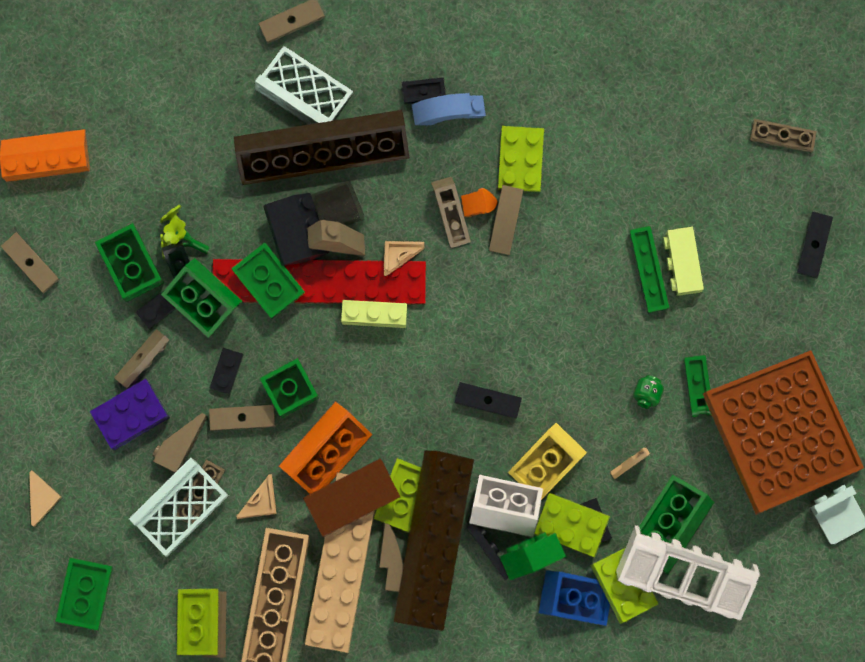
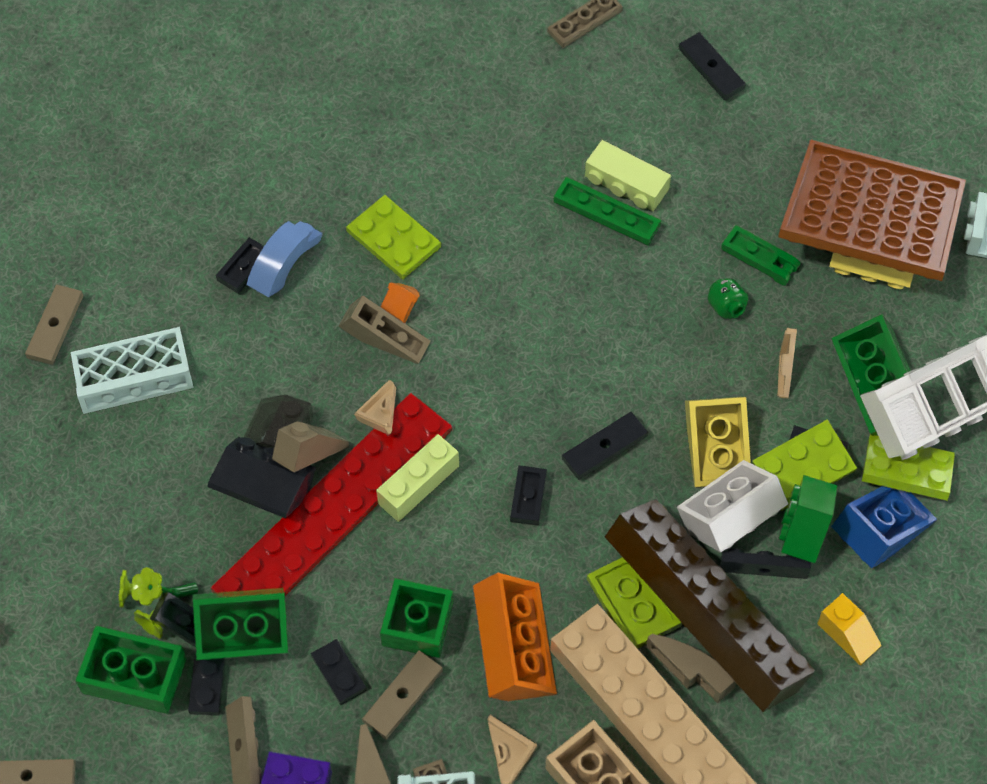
camera: 50 degrees left, 20 degrees down
(268, 280) = (286, 546): green plate -> none
(321, 147) = (204, 390): dark brown brick -> none
(351, 497) = (592, 642): reddish brown tile -> none
(419, 383) = (528, 495): none -> black plate
(489, 630) = (849, 629): none -> yellow slope
(506, 220) = (439, 289): dark tan slope -> none

